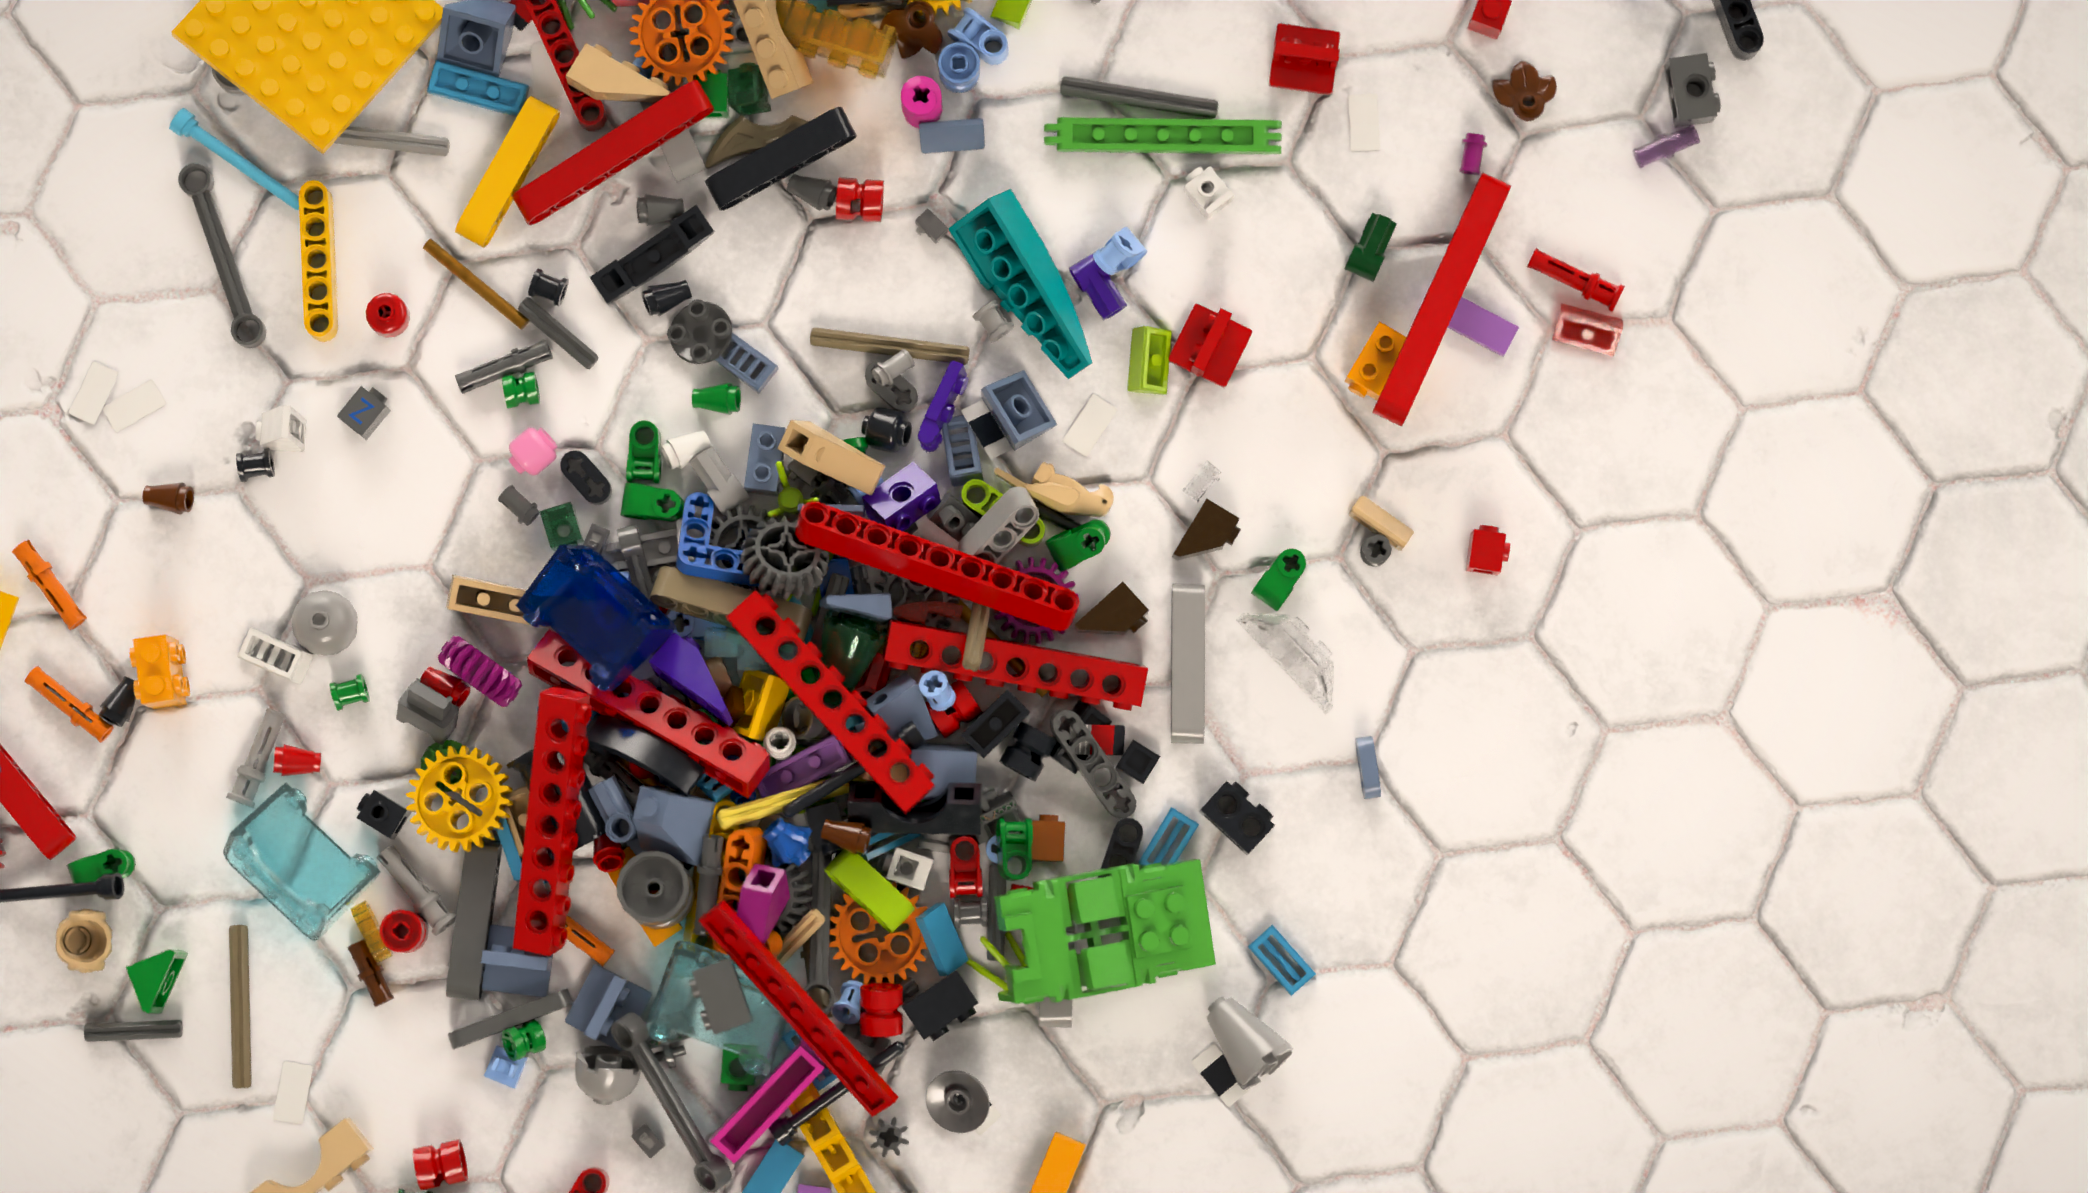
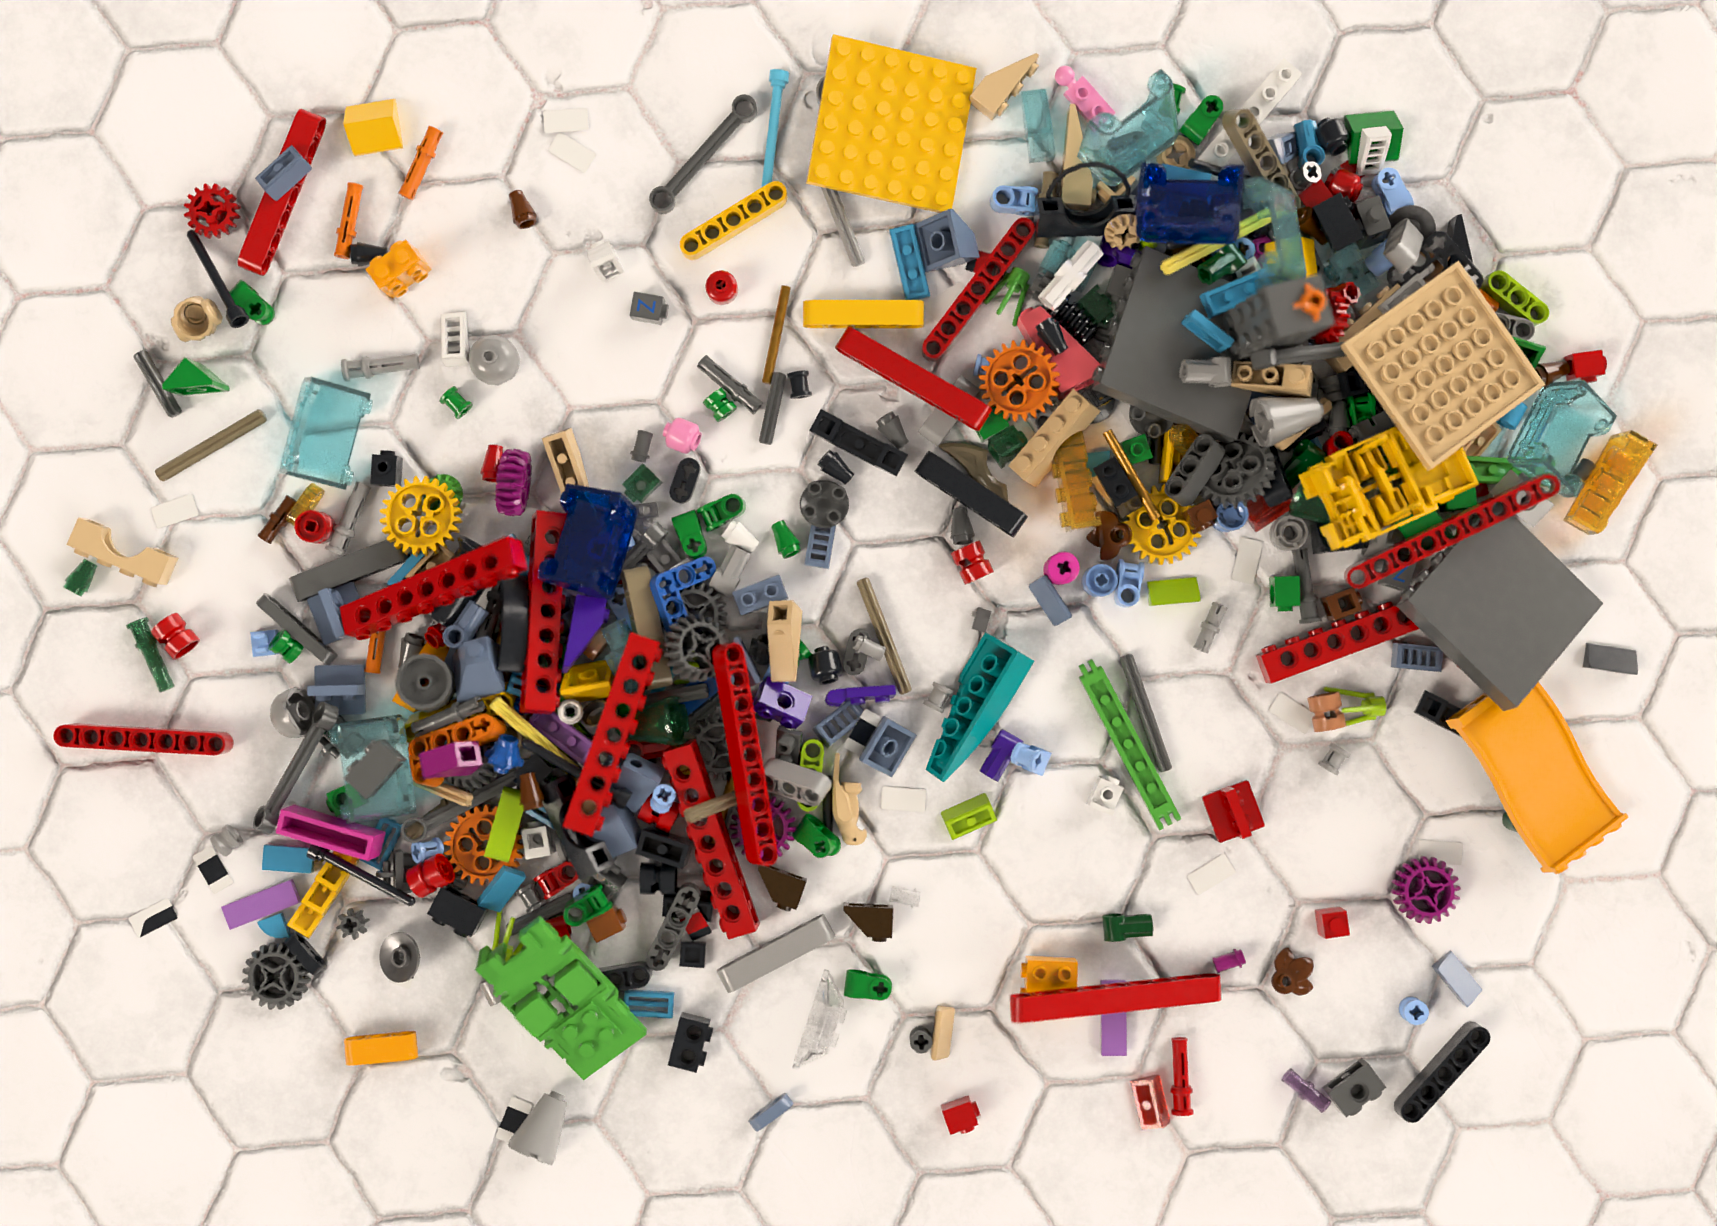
camera: 60 degrees right, 5 degrees up
(255, 465) = (573, 255): black bush -> none
(295, 761) = (391, 392): red cone -> none
(428, 711) = (468, 462): dark grey piece -> none
(604, 897) = (410, 645): none -> dark grey cone
(608, 79) = (960, 346): tan slope -> none
(647, 1141) = (266, 764): flat silver piece -> none
(735, 704) = (581, 666): reddish brown tile -> none
(788, 497) = (742, 626): lime plant -> none
(798, 1008) = (395, 822): red tile -> none
(868, 606) = (695, 721): sand blue slope -> none
(919, 611) = (710, 757): clear red slope -> none
(1210, 345) = (1001, 852): red bracket -> none
(1271, 968) = (618, 1101): dark azure tile -> none

